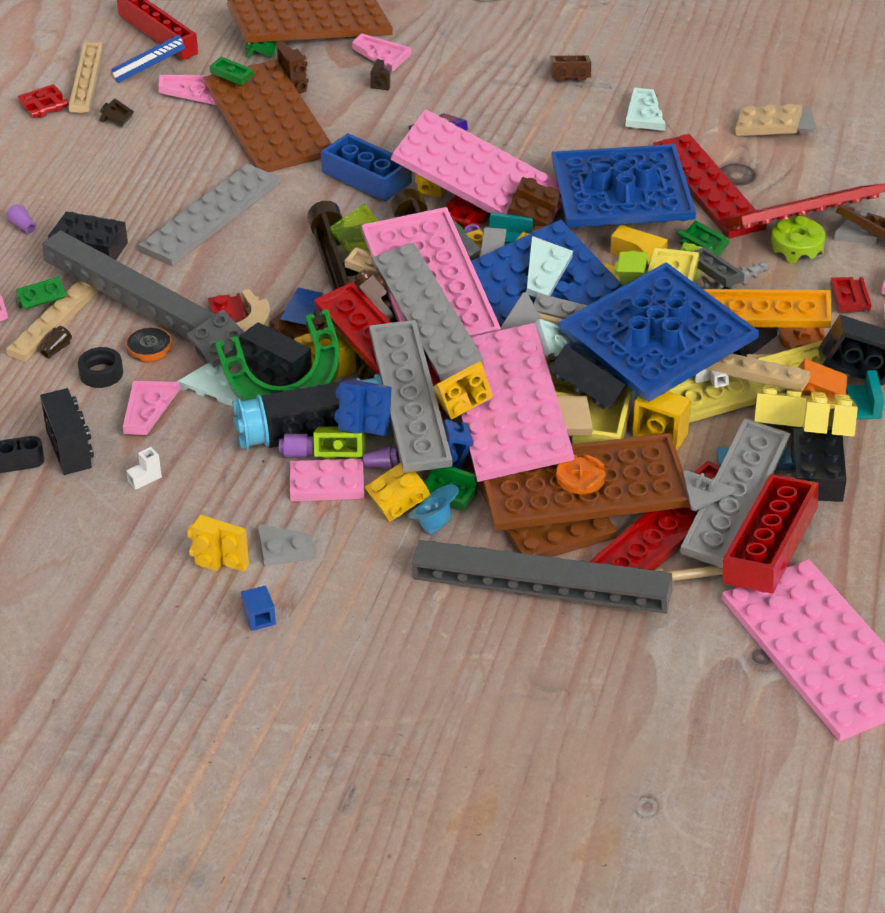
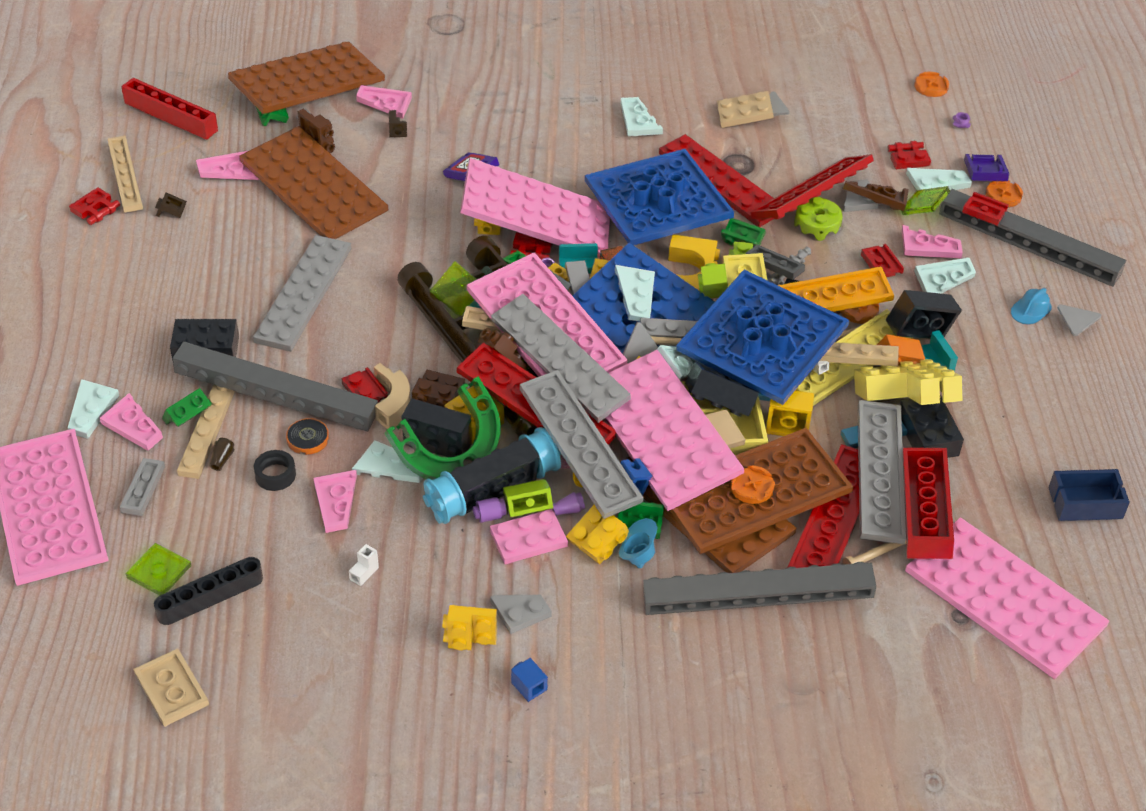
camera: 20 degrees left, 5 degrees up
(19, 217) = (128, 331): medium lavender cone -> none
(67, 431) = (278, 544): black brick -> none
(148, 58) = (177, 145): blue sticker -> none
(213, 330) = (373, 419): dark grey plate -> none
(231, 71) = (266, 146): green plate -> none
(300, 305) = (432, 369): blue sticker -> none
(363, 407) = (547, 464): blue plate -> none
(365, 167) = (426, 219): blue brick -> none
(463, 390) = (628, 430): yellow slope -> none
(534, 201) = (592, 227): reddish brown plate -> none
(570, 67) = (558, 87): reddish brown plate -> none
(703, 490) = (858, 476): light grey piece -> none

